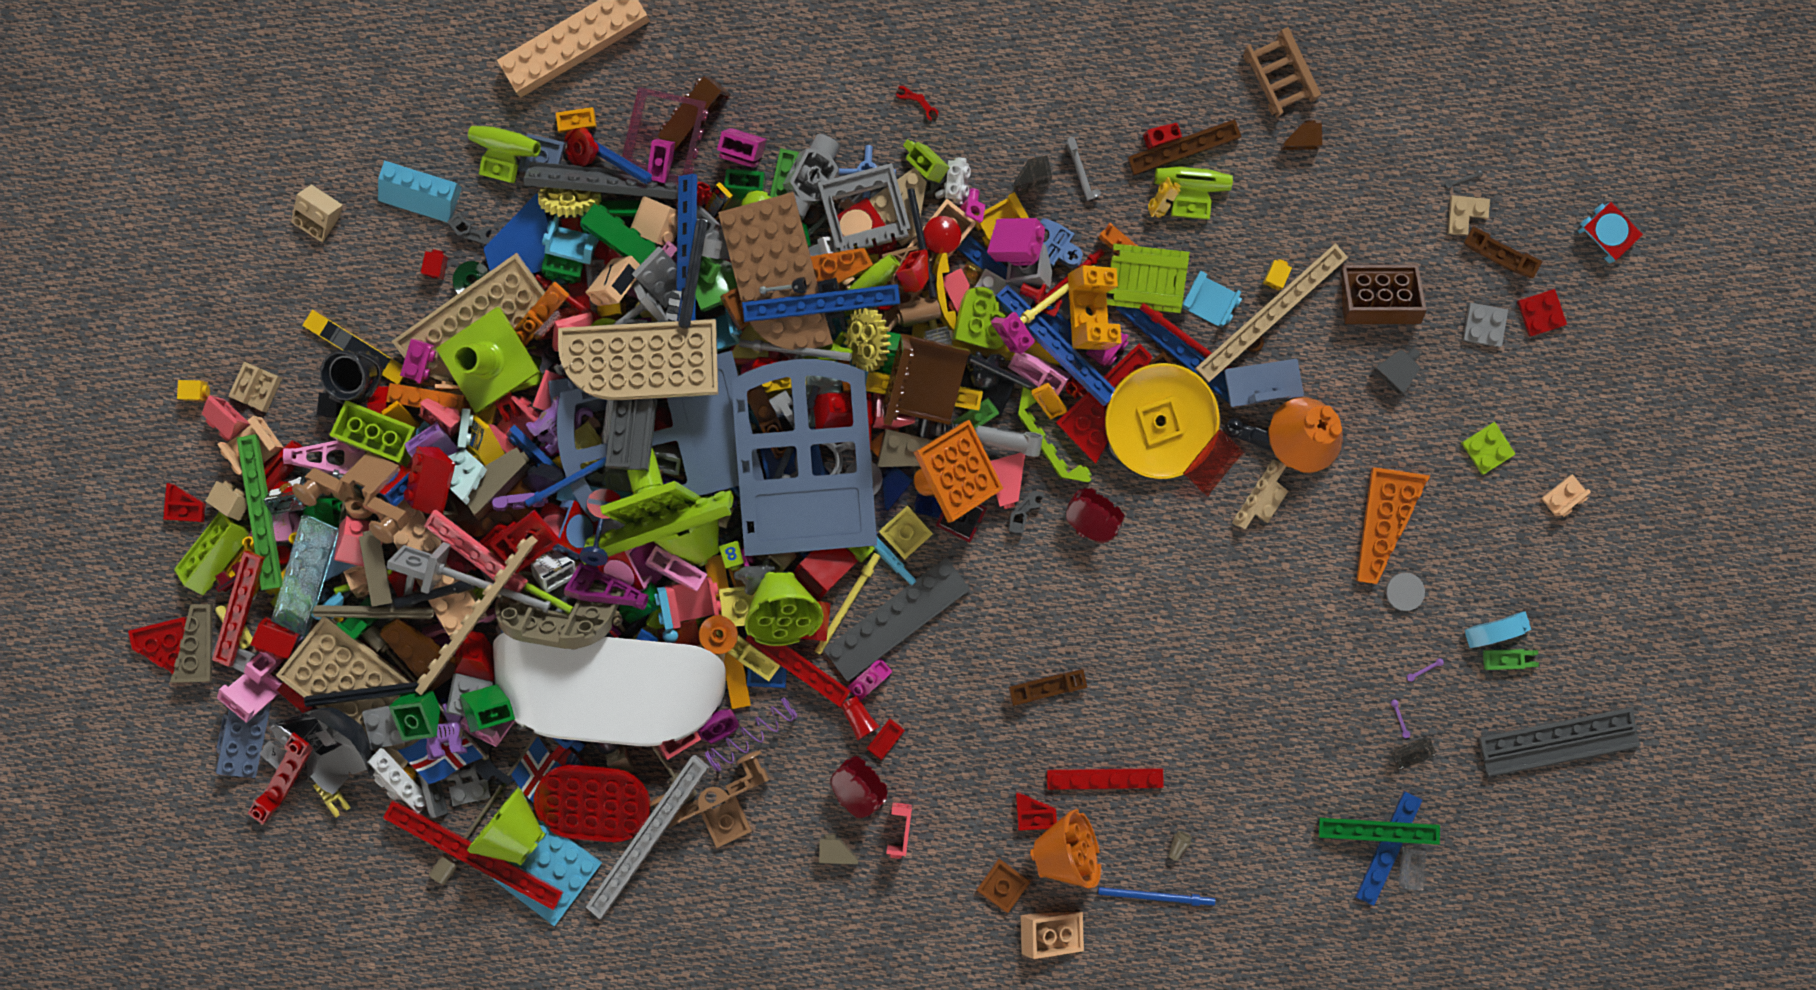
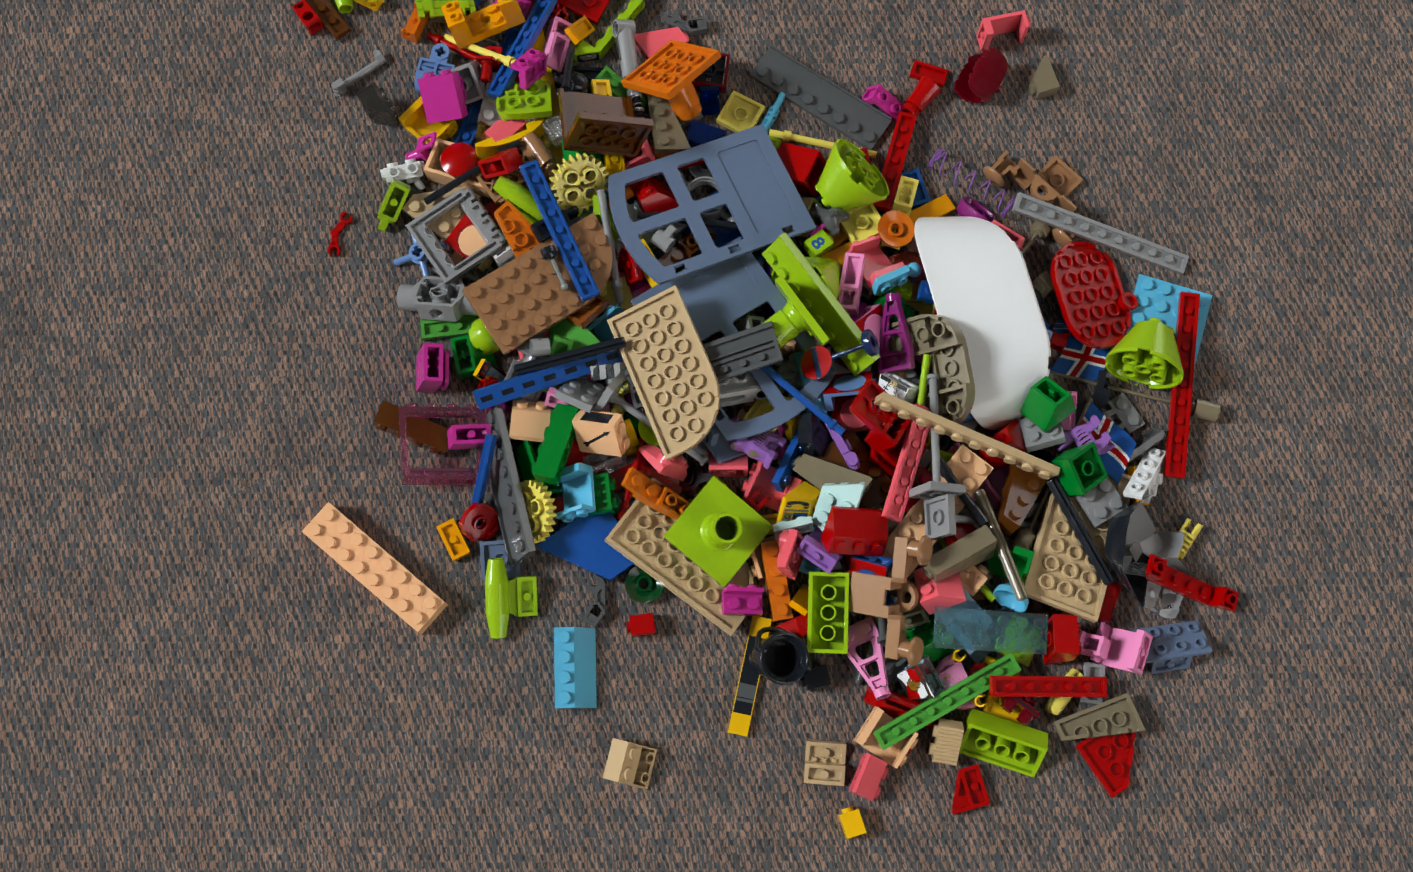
camera: 115 degrees left, 10 degrees down
(574, 838) = (1128, 302): none -> red tile

